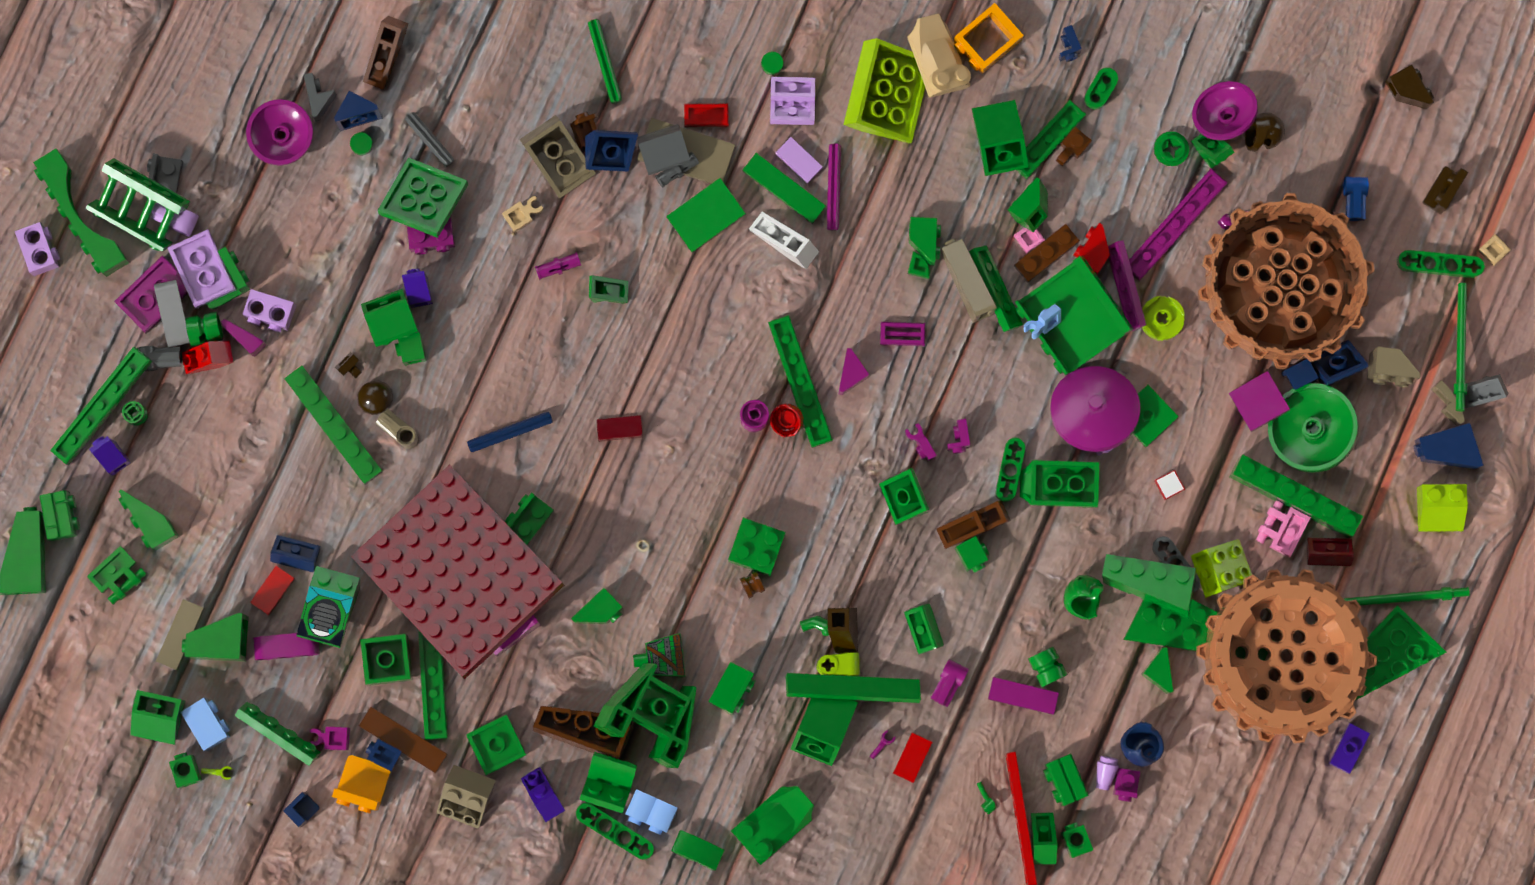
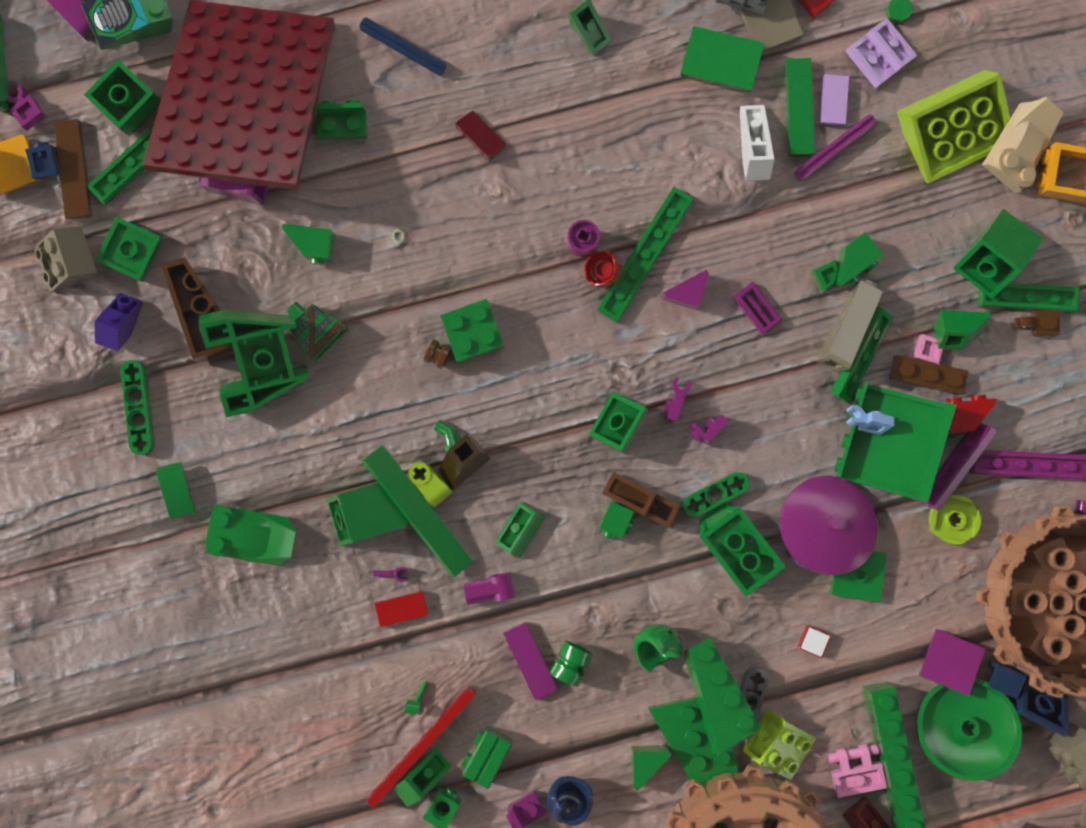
camera: 55 degrees right, 5 degrees up
(608, 782) = (168, 369): green bracket -> none
(651, 811) = (176, 424): light blue brick -> none
(732, 688) = (333, 408): green slope -> none
(1106, 772) = (522, 785): lavender cone -> none

